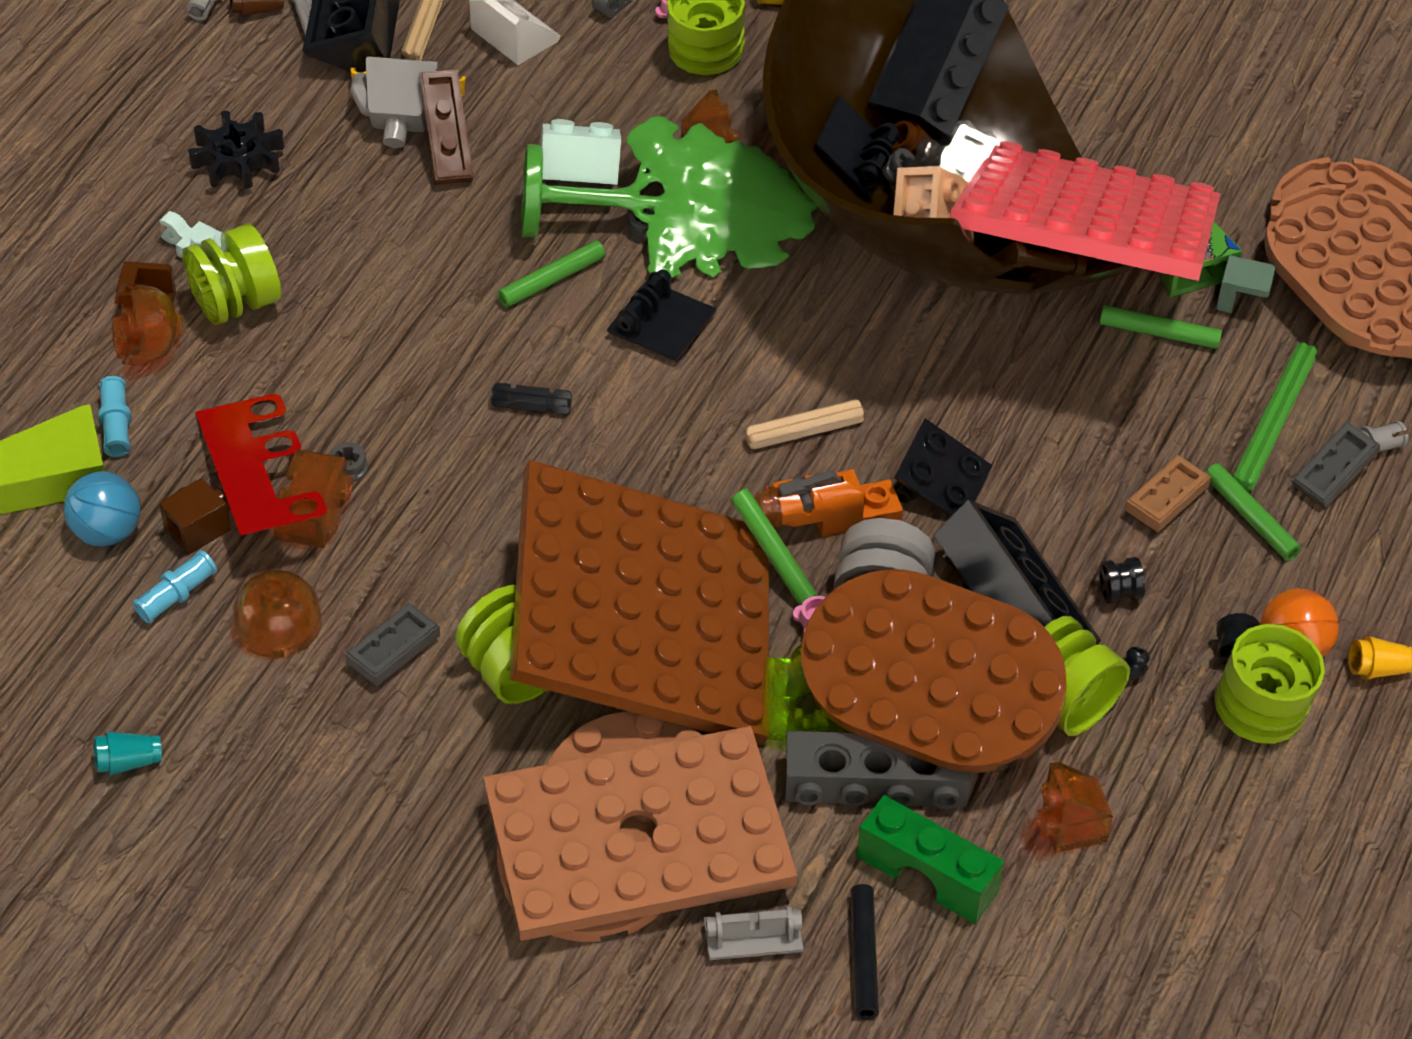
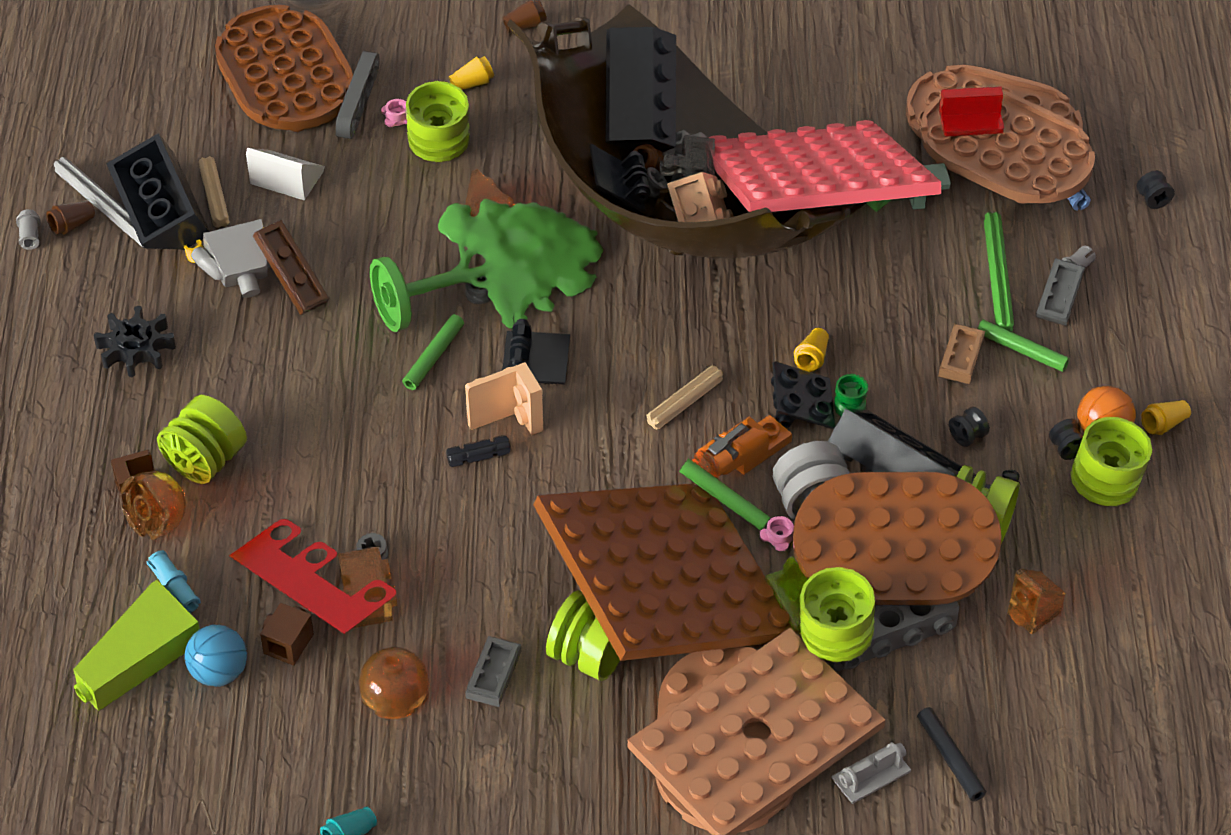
camera: 25 degrees left, 0 degrees up
(174, 586) = (304, 692): medium azure pin -> none
(182, 235) = (145, 426): light aqua plate -> none
(580, 152) = (412, 250): light aqua slope -> none
(584, 346) = (504, 395): none -> light nougat bracket
(801, 728) = (837, 614): none -> lime wheel
(961, 871) = (937, 664): green arch -> none
(985, 425) = (812, 350): none -> yellow cone
(1000, 488) = (850, 393): none -> green wheel
(1160, 327) = (885, 235): bright green piece -> none
(1340, 214) = (971, 111): none -> red panel

